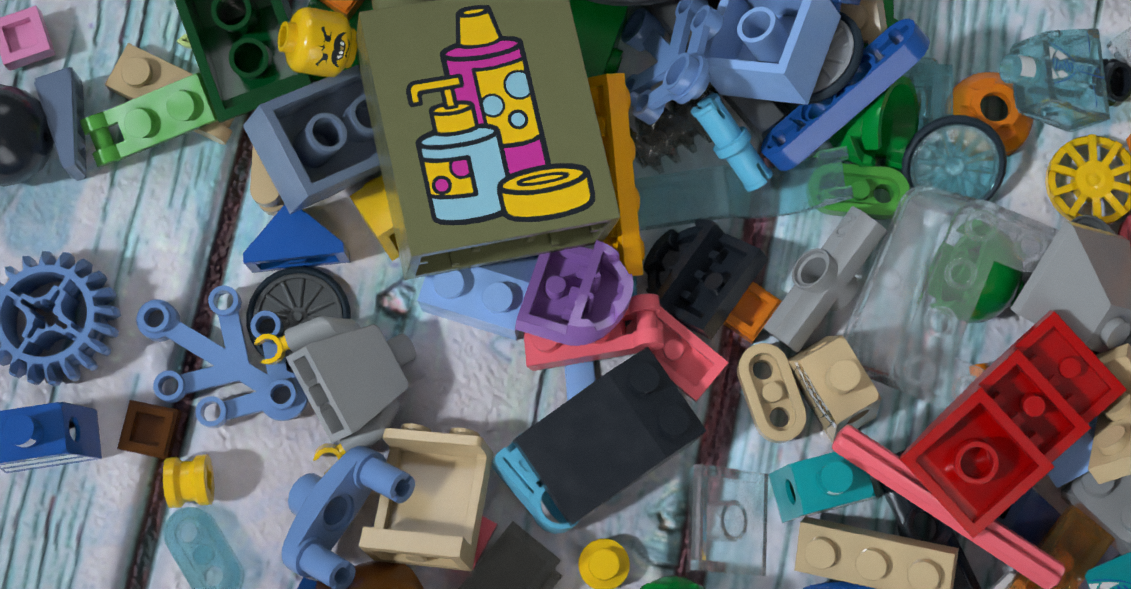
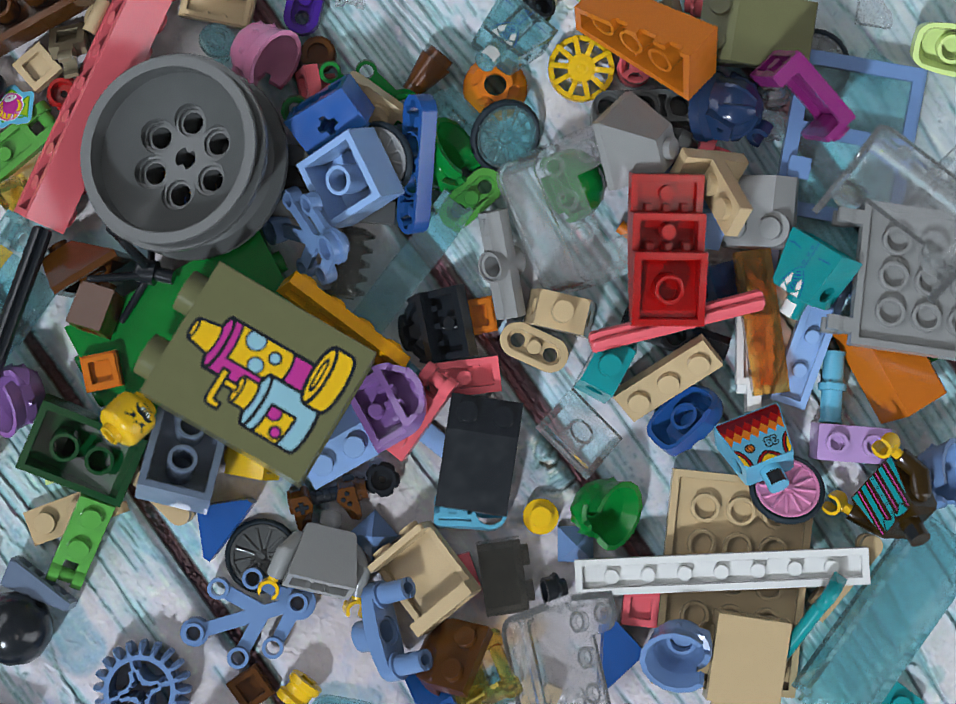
camera: 50 degrees left, 10 degrees up
(425, 406) = (374, 533): none -> medium blue slope
(442, 341) = (348, 493): none -> reddish brown piece
(489, 351) = (383, 469): none -> black plate
(732, 142) = (385, 245): medium azure pin -> none
(948, 32) = (428, 70): none -> reddish brown cone

